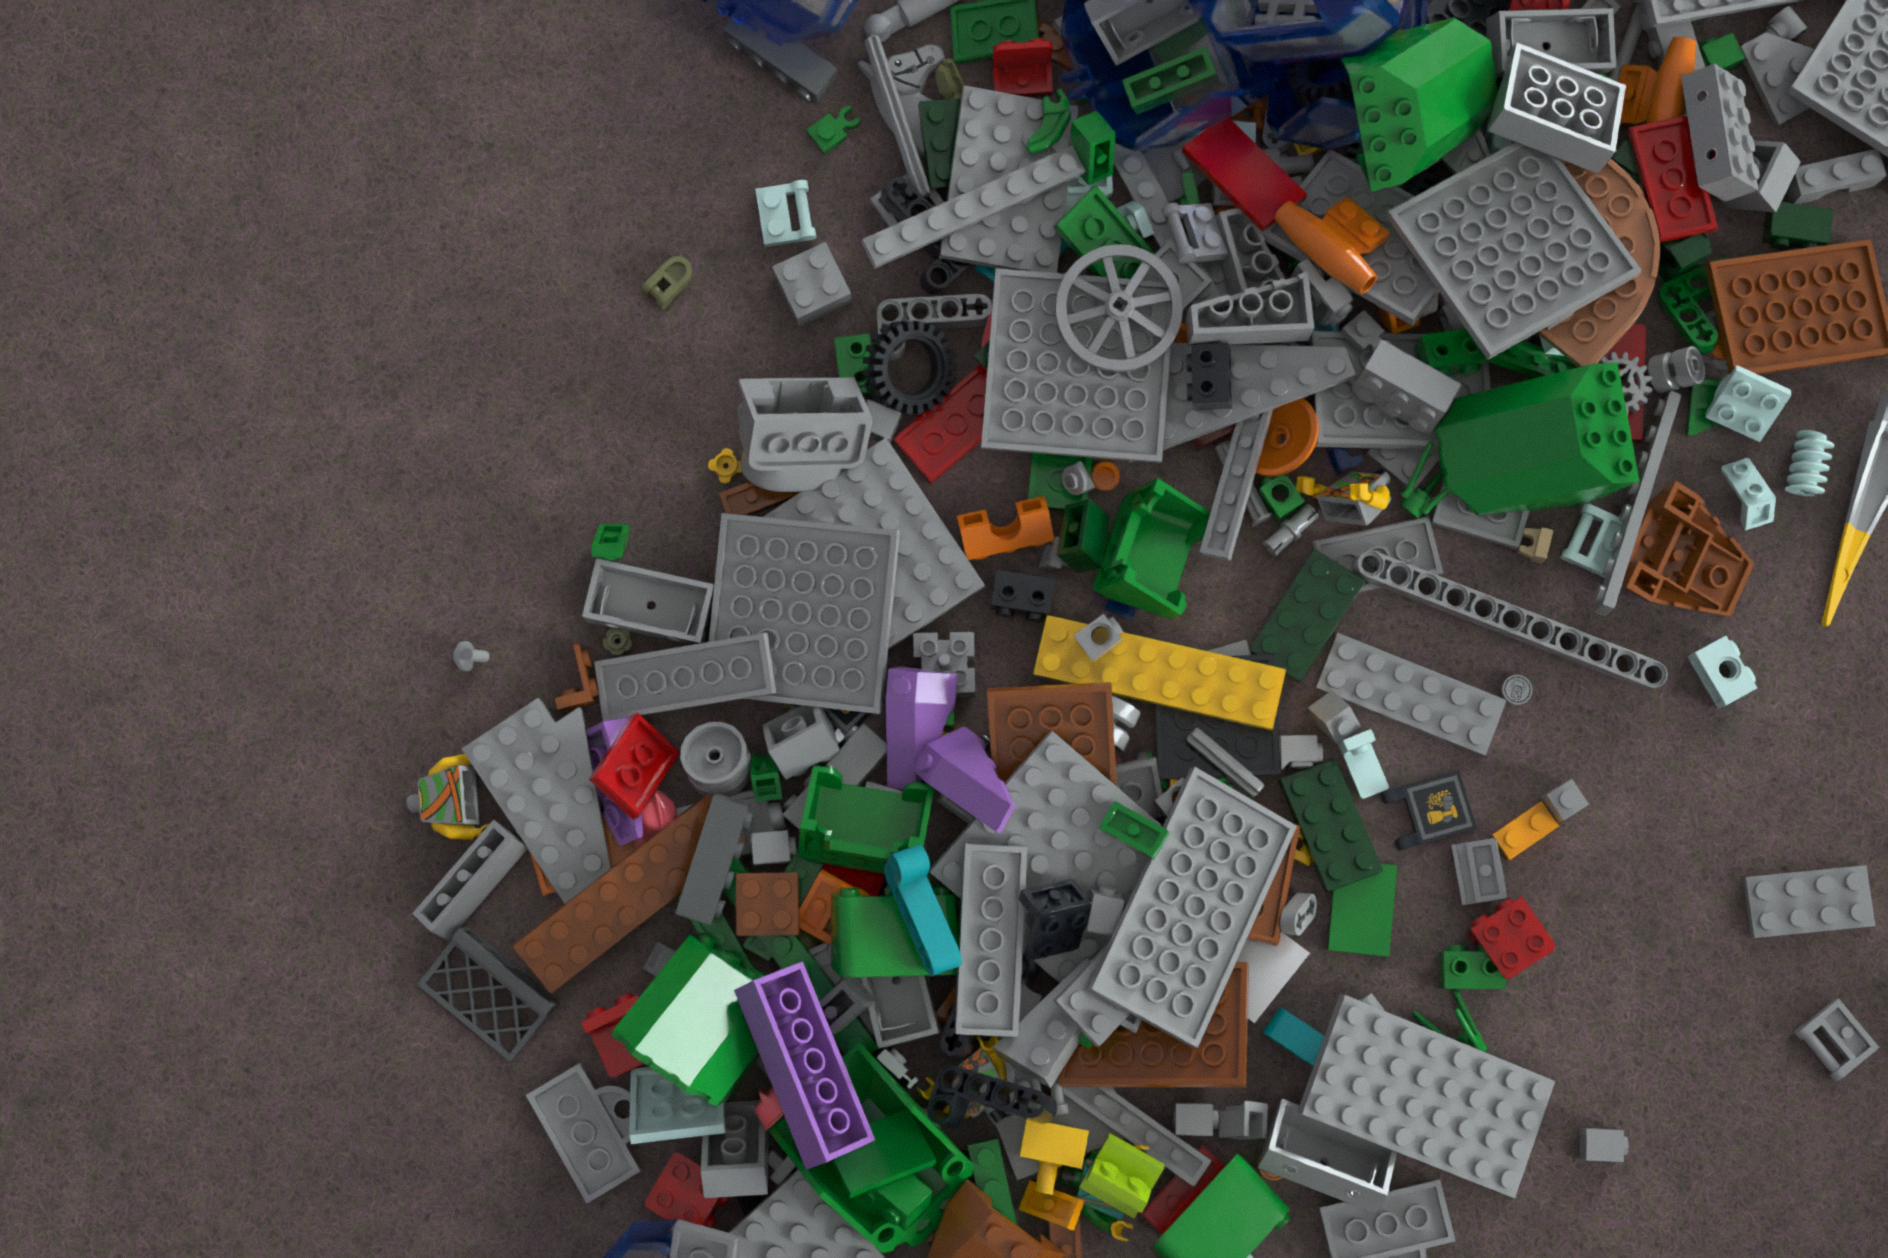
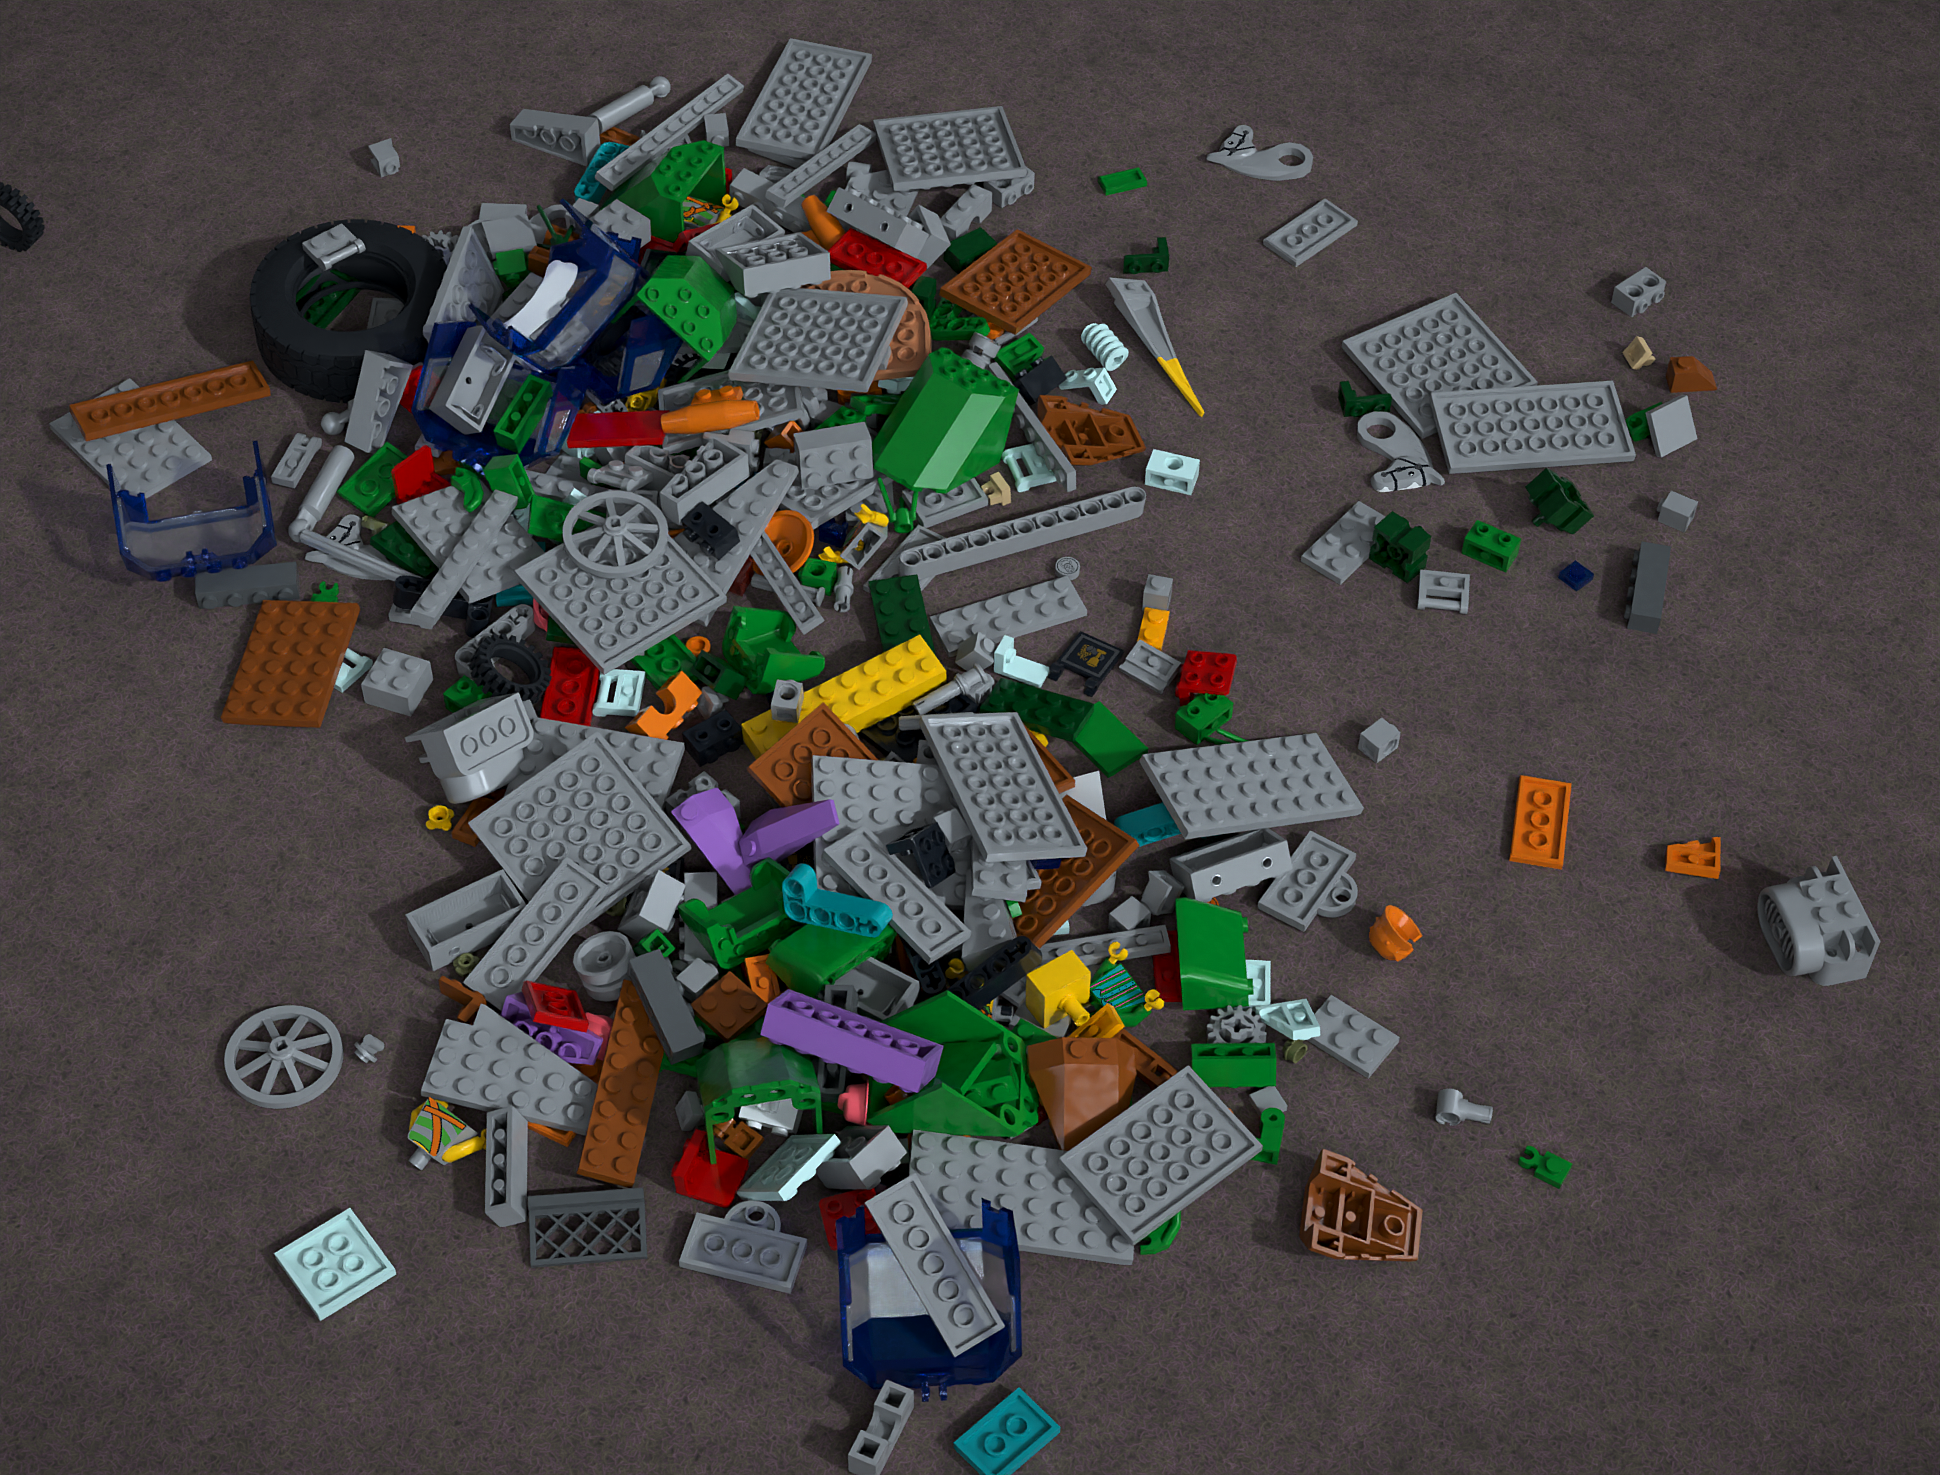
camera: 45 degrees left, 30 degrees down
(274, 841) = (335, 1264): none -> light aqua plate
(408, 601) = (285, 1057): none -> light grey wheel
(610, 541) = (405, 906): green plate -> none
(676, 272) = (294, 743): olive plate -> none
(744, 179) = (291, 663): none -> dark orange plate
(995, 476) = (627, 693): none -> light aqua plate
(1076, 479) = (682, 652): light grey plate -> none
(1122, 1176) = (1120, 967): lime bracket -> none
(1134, 830) = (920, 766): green plate -> none
(1279, 747) = (959, 685): none -> light grey pin
(1298, 913) = (1069, 762): light grey beam -> none
(1700, 451) = (1039, 379): none -> black brick
(1747, 403) = (1037, 336): light aqua plate -> none
(1844, 962) = (1400, 547): none -> dark green brick

